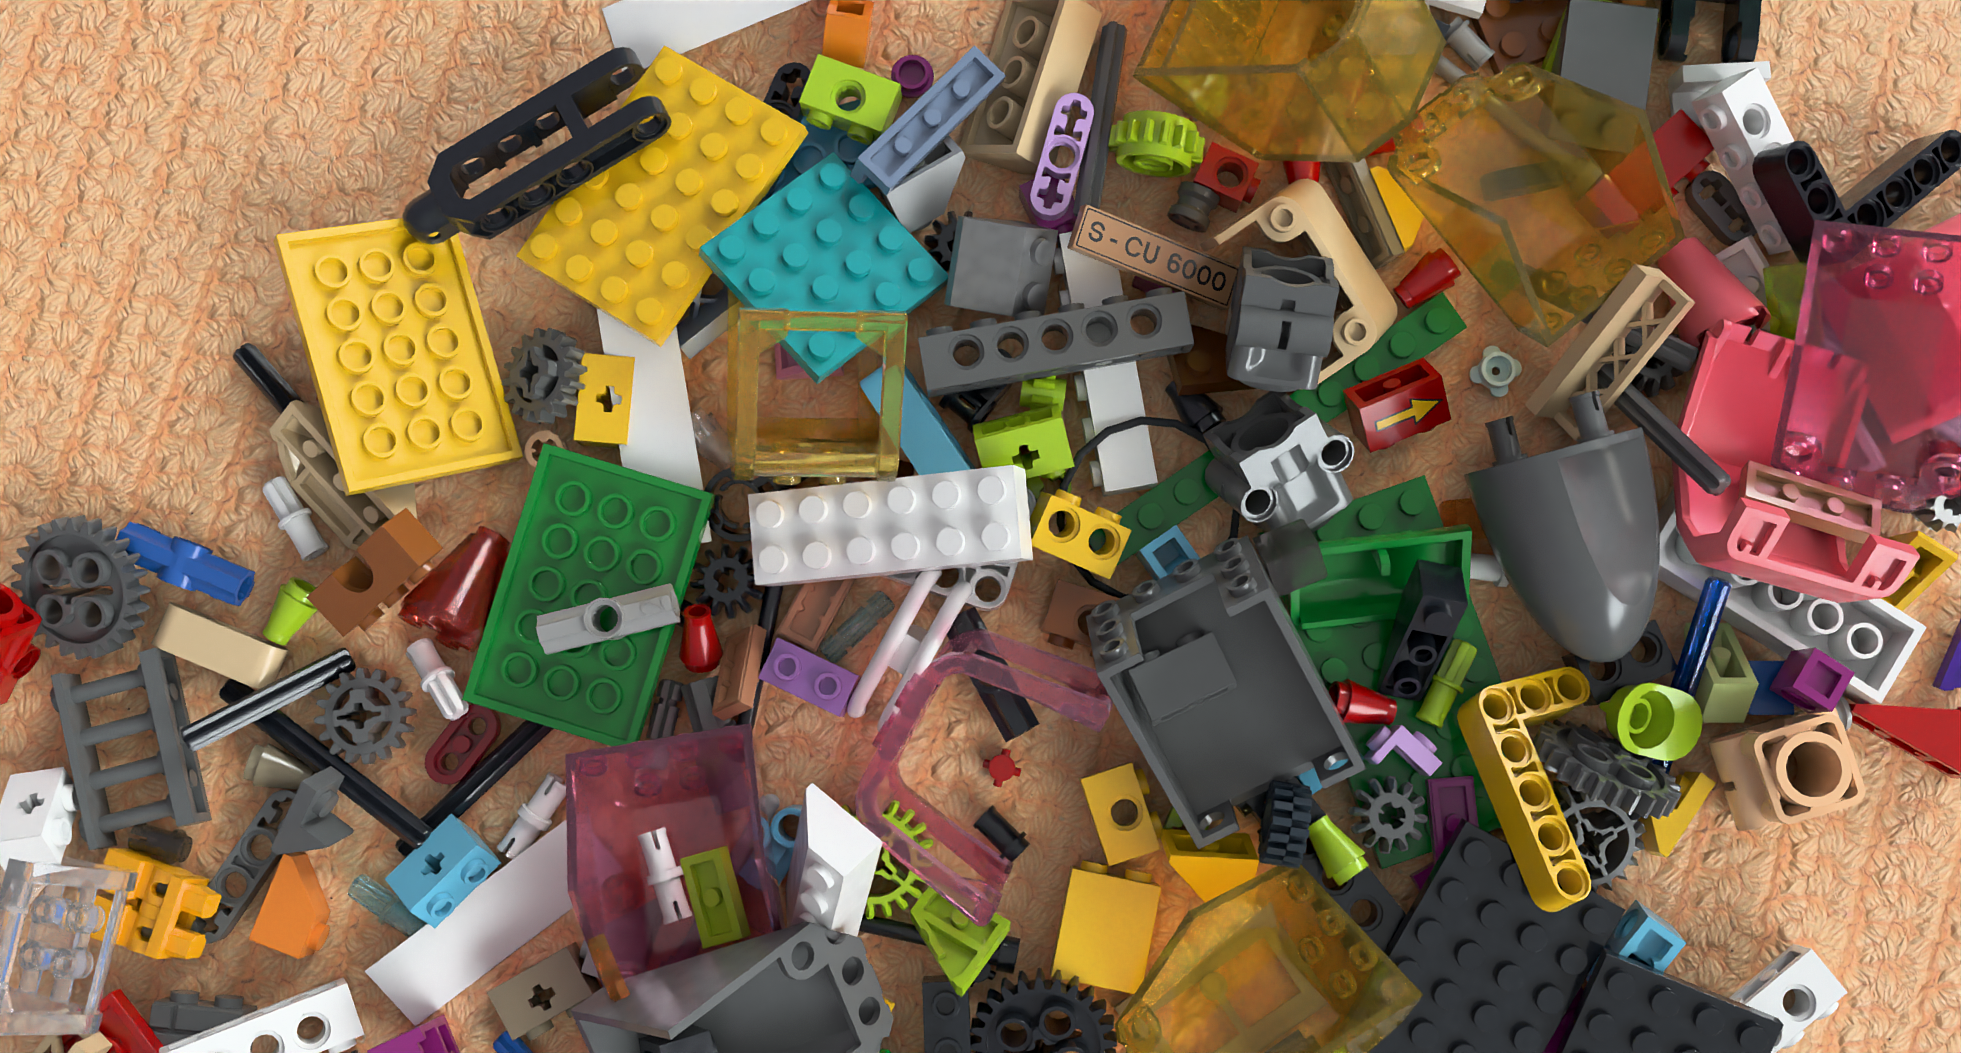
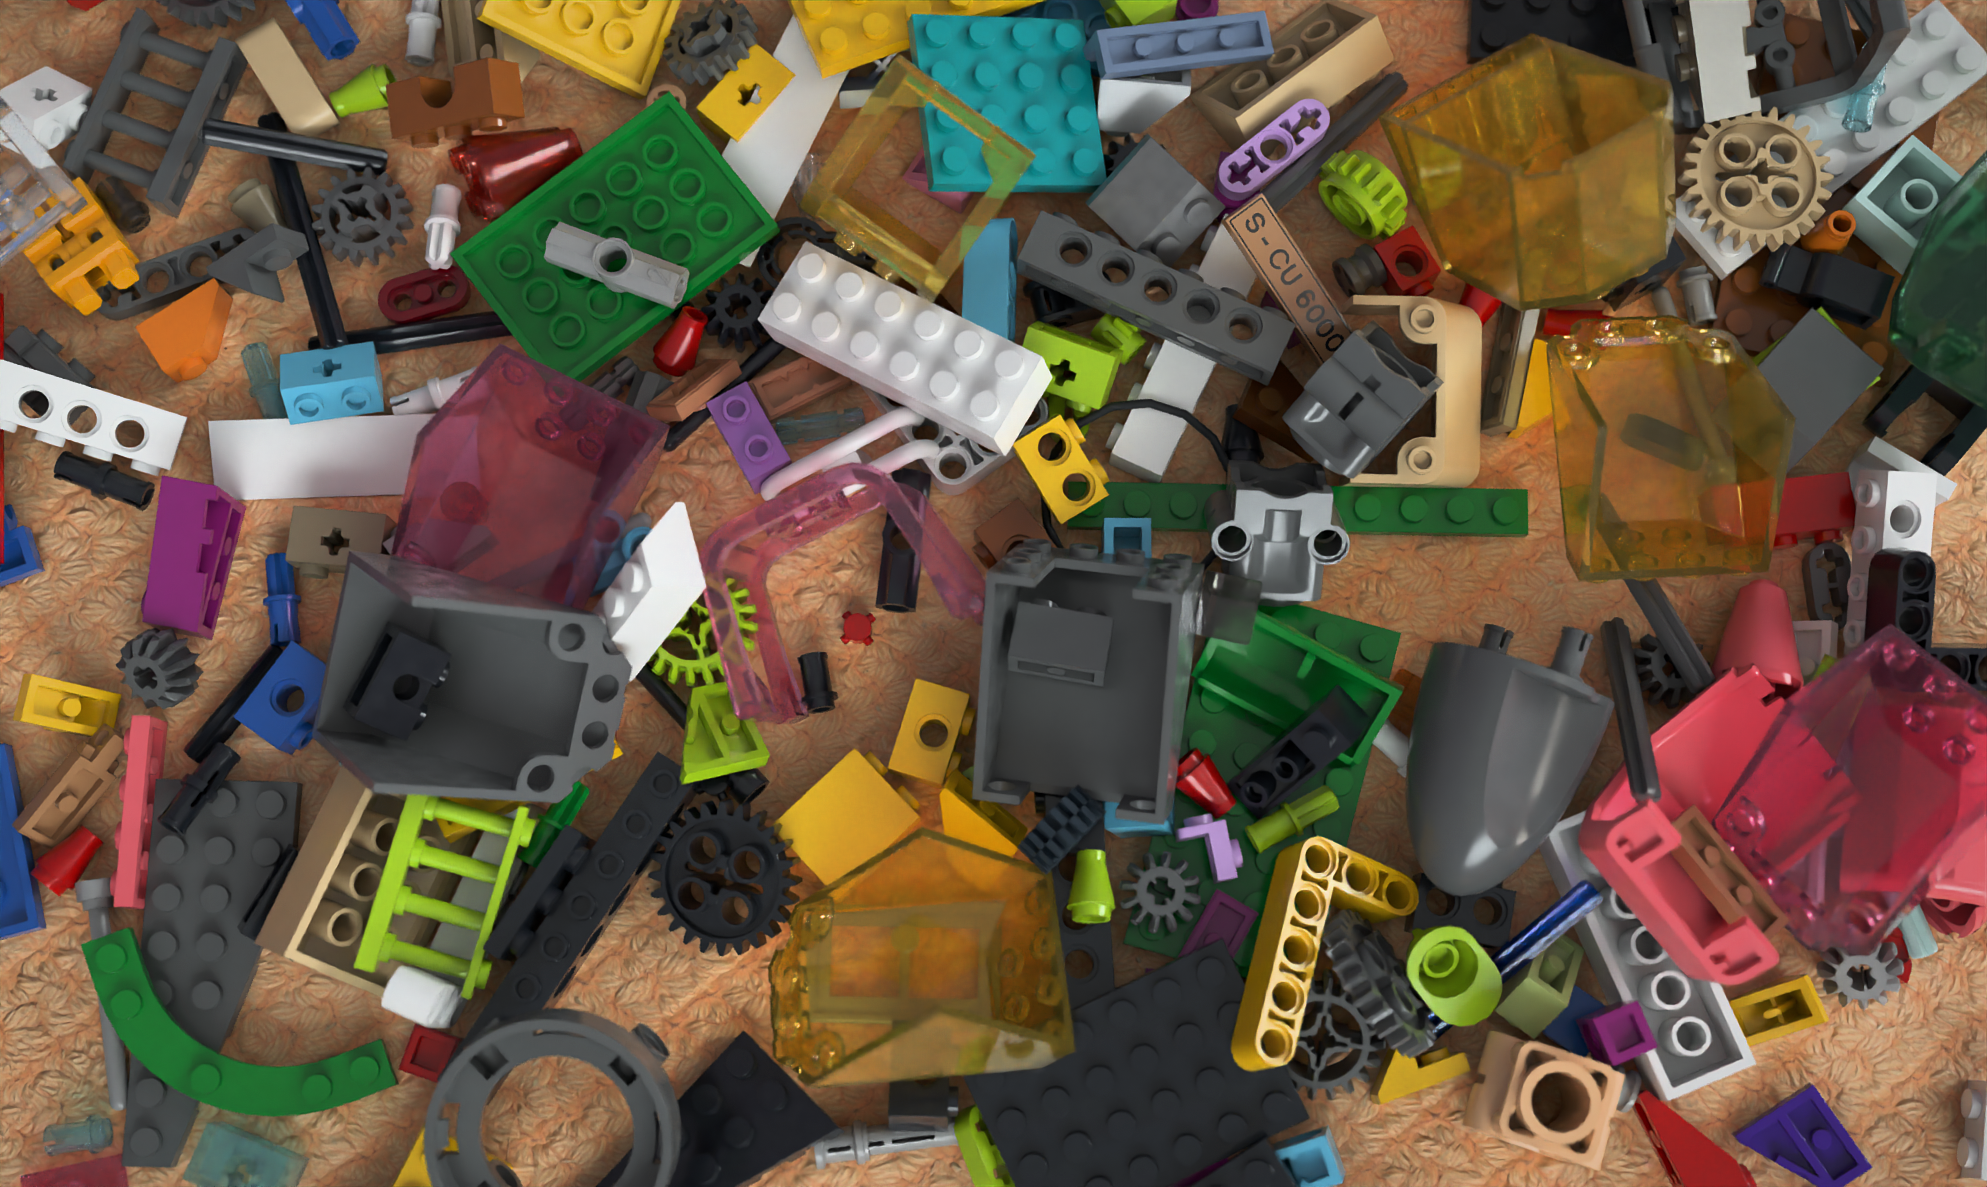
camera: 30 degrees right, 5 degrees down
(608, 967) = (405, 532): clear orange tile -> none
(664, 875) = (508, 507): white pin -> none
(715, 897) = (538, 551): lime plate -> none
(1397, 405) = (1417, 555): red brick -> none
(1427, 278) = (1521, 469): red cone -> none
(1507, 366) = (1532, 576): light aqua plate -> none
(1606, 335) = (1638, 613): tan fence -> none

